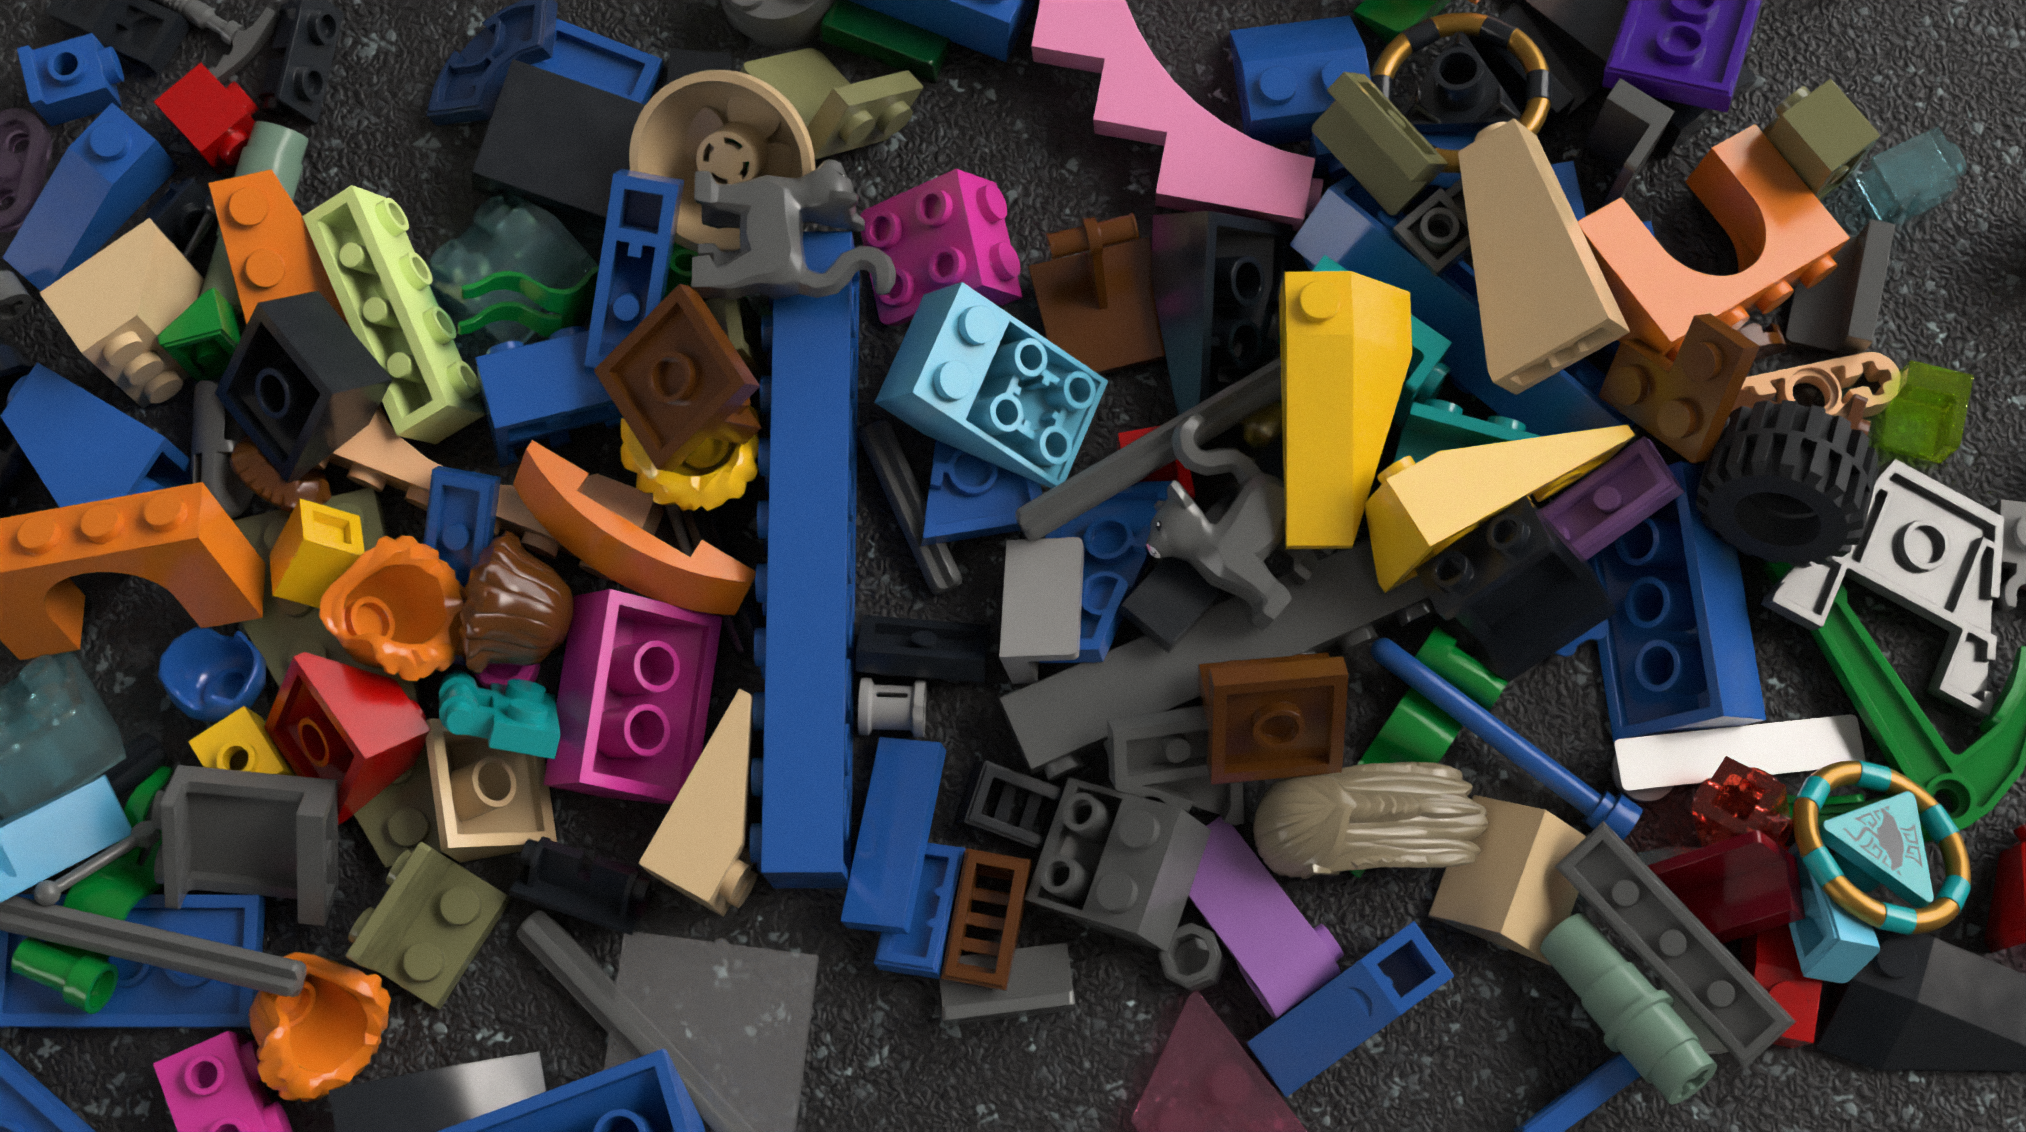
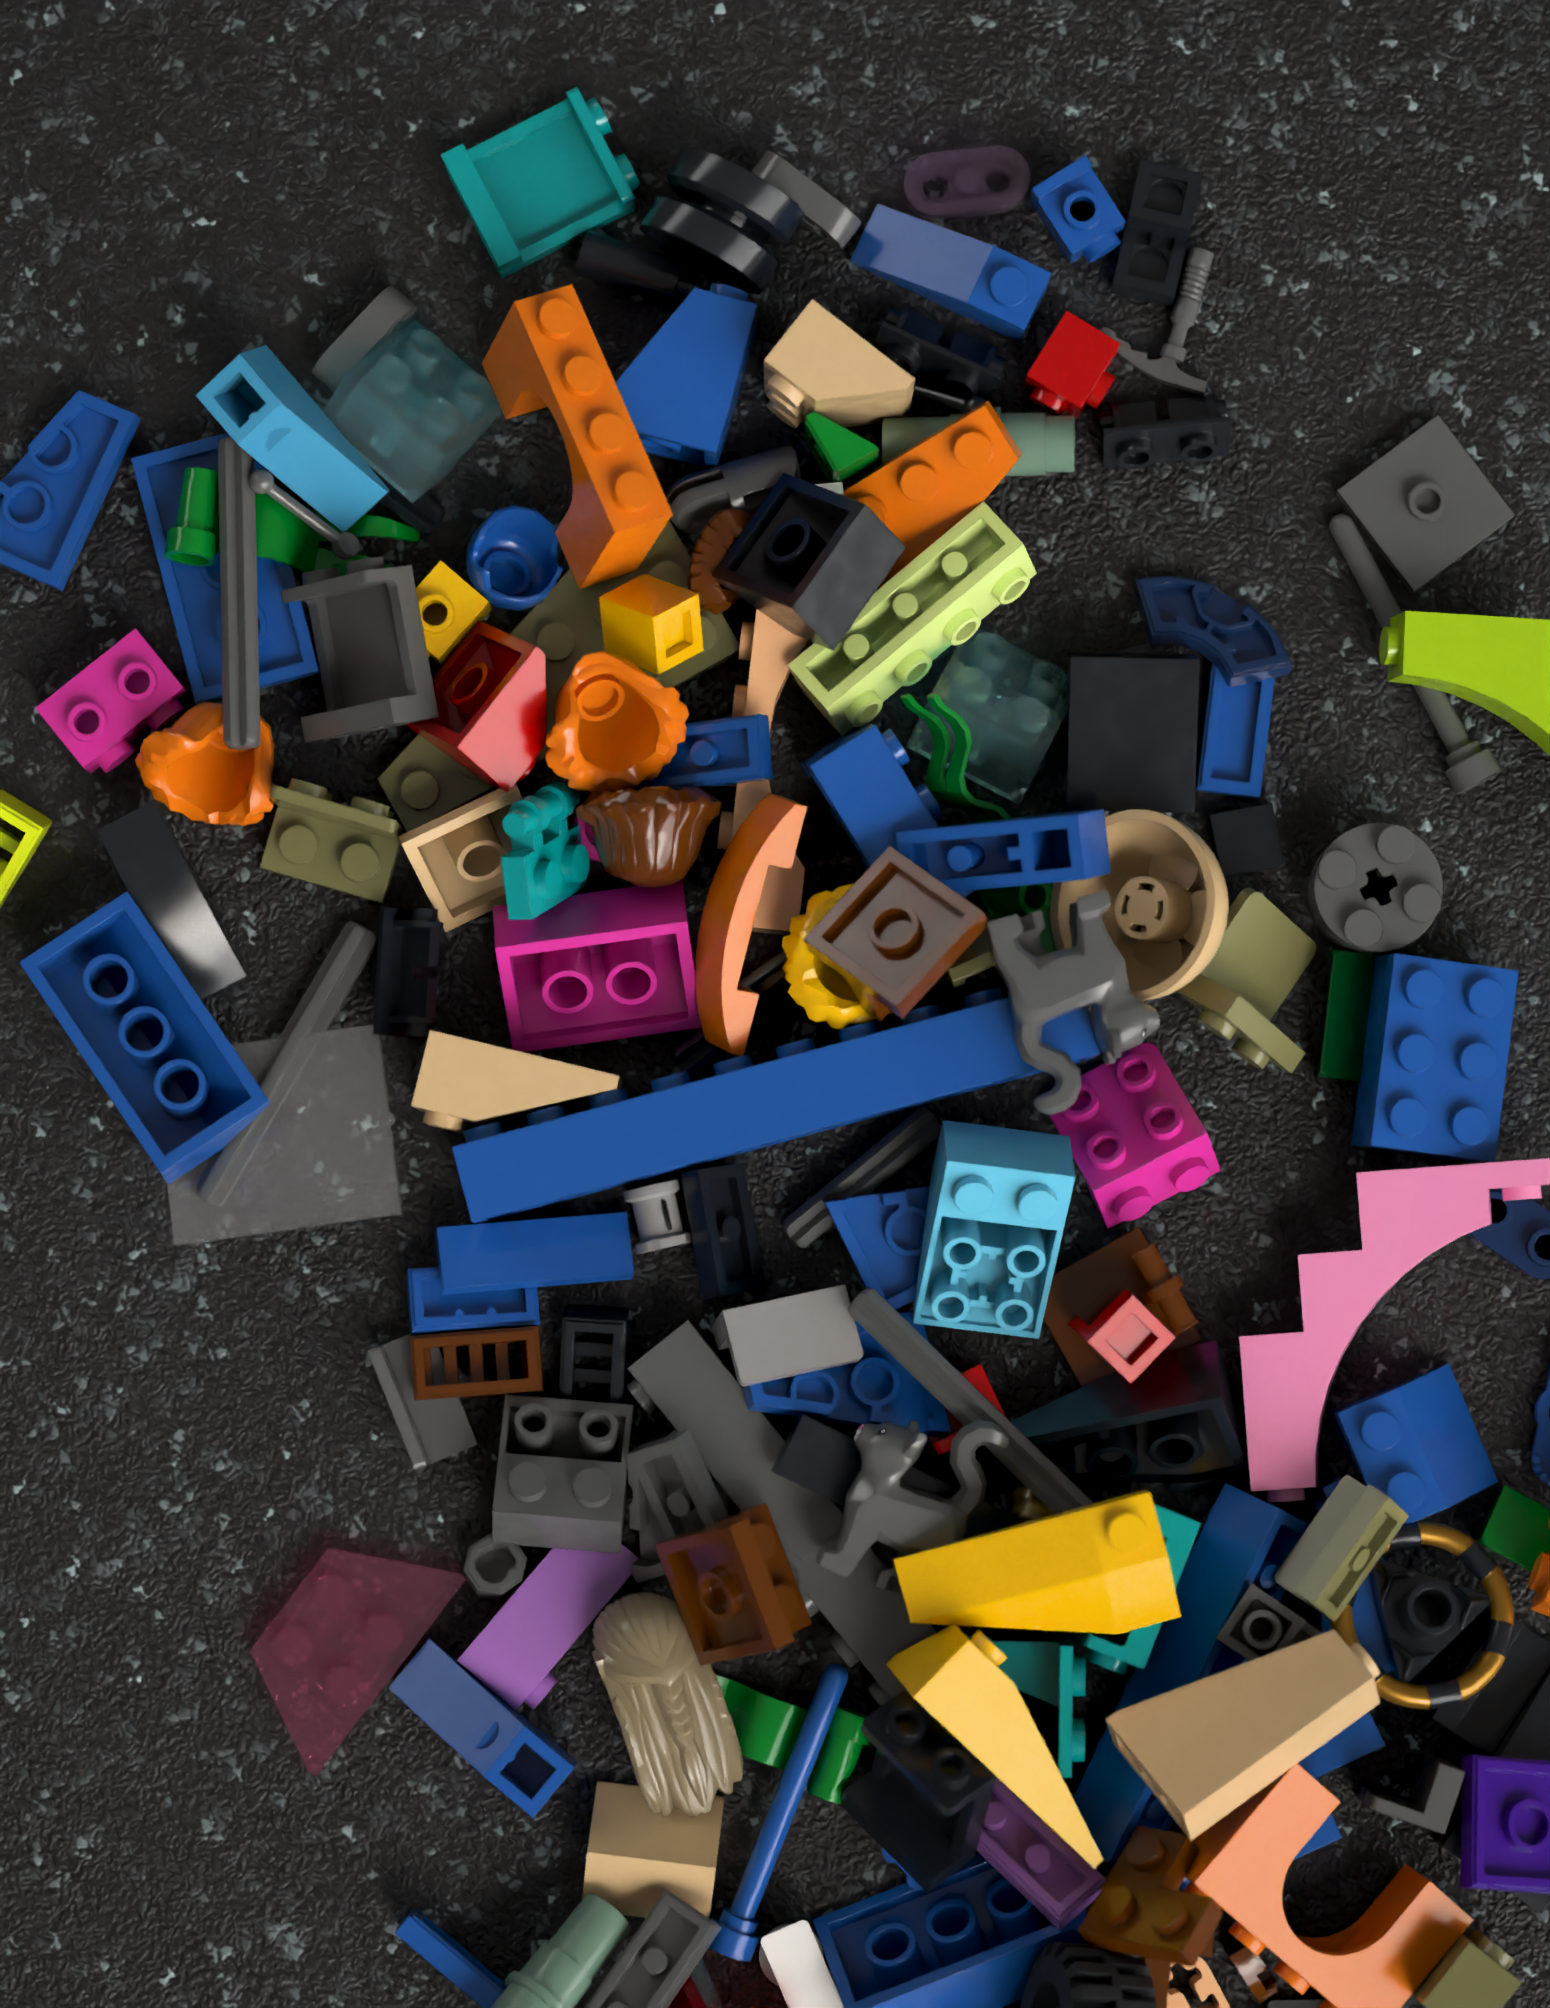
camera: 70 degrees right, 10 degrees up
(1128, 289) = (1125, 1335): none -> panel

